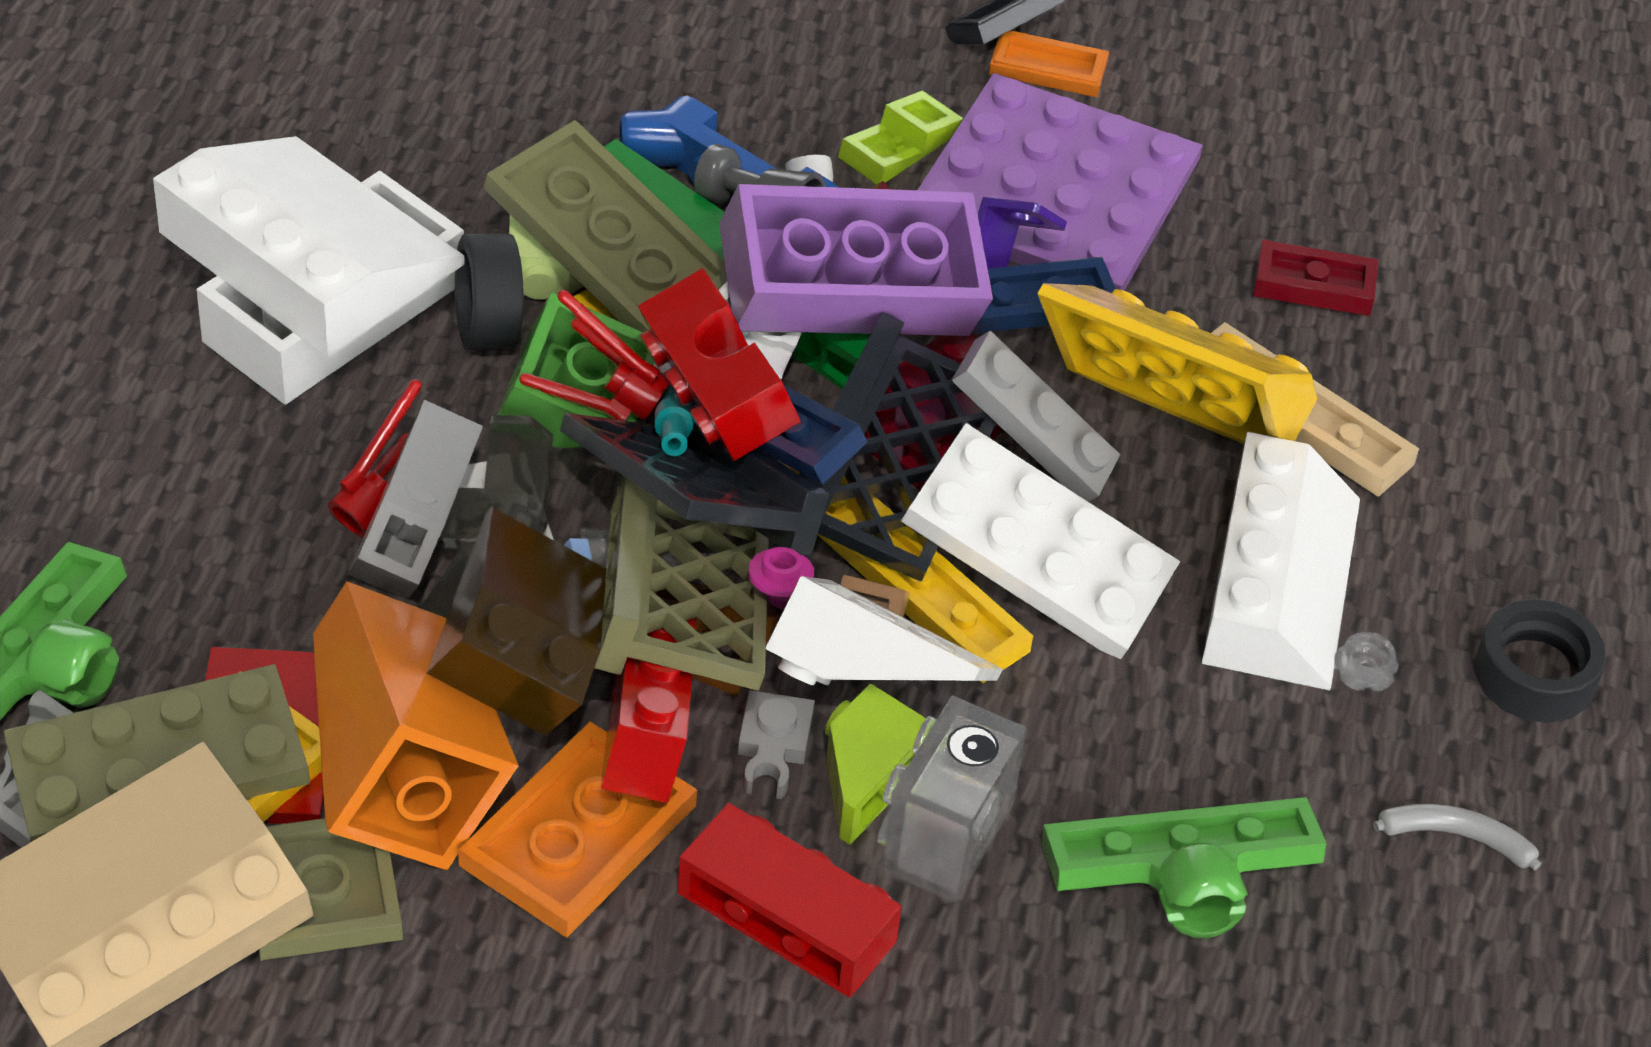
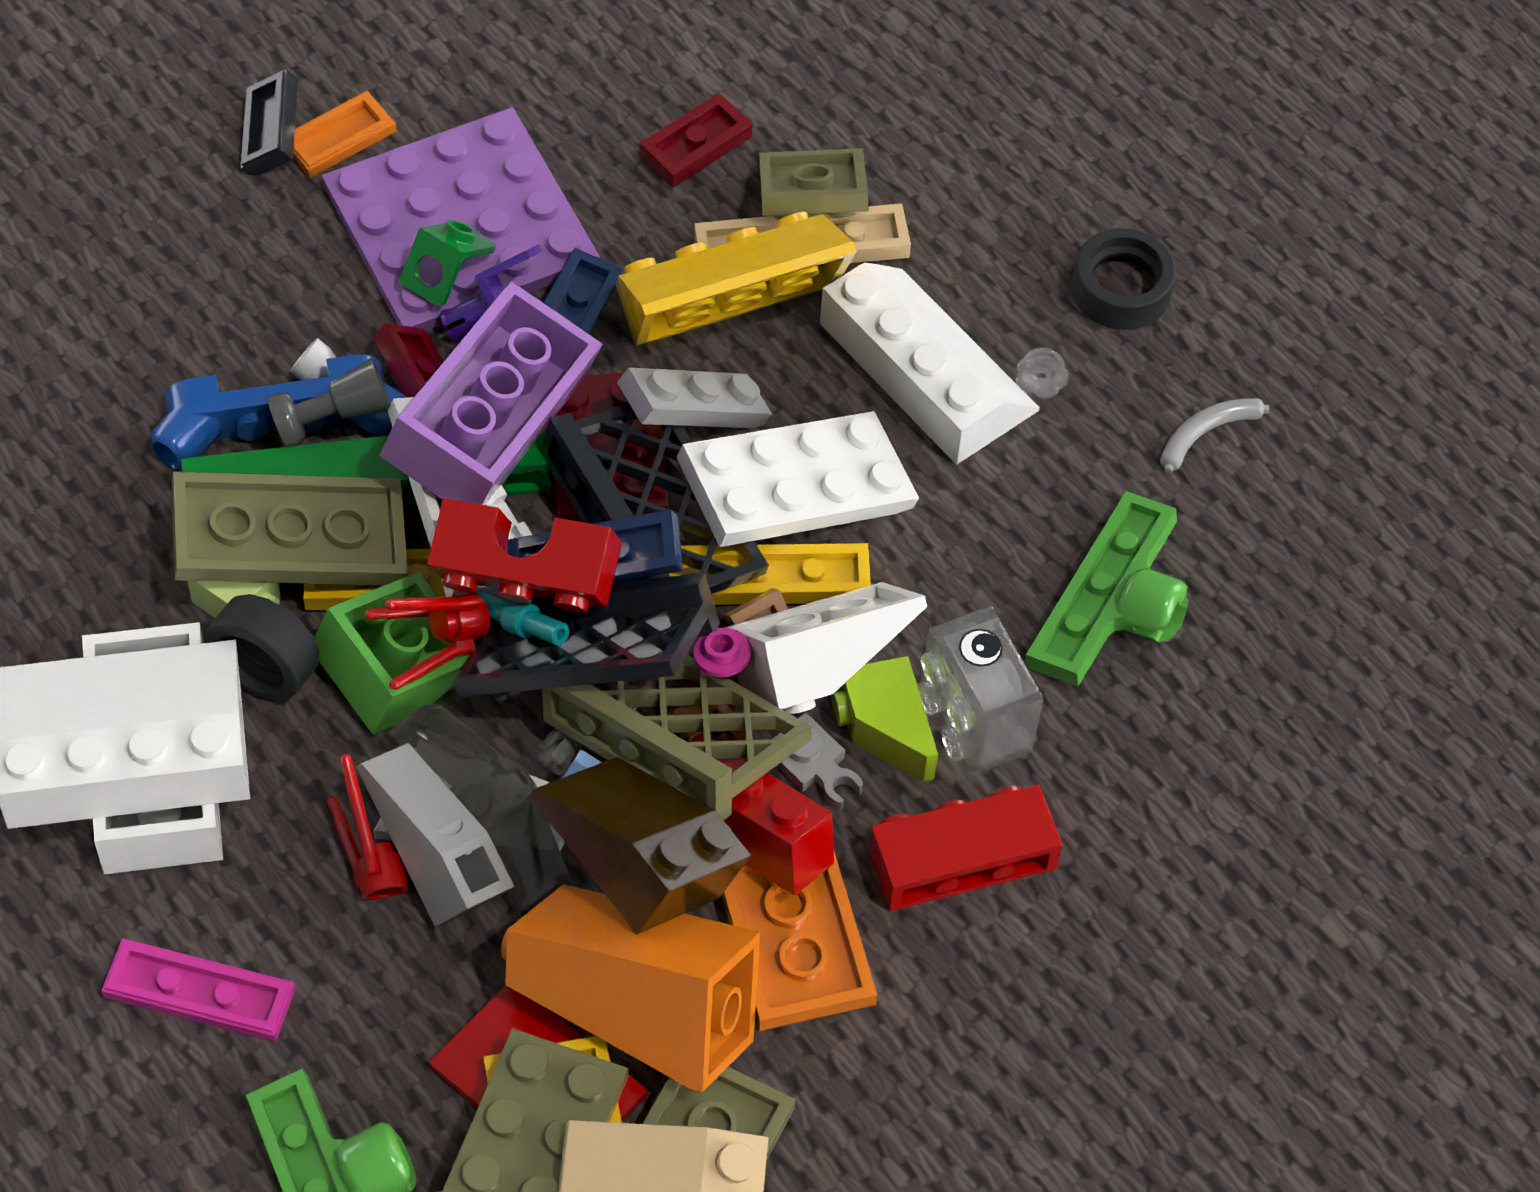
camera: 50 degrees left, 10 degrees up
(149, 463) = (198, 990): none -> dark pink tile
(905, 135) = (326, 279): lime slope -> none
(995, 164) = (450, 246): none -> green bracket
(1362, 372) = (813, 182): none -> olive plate

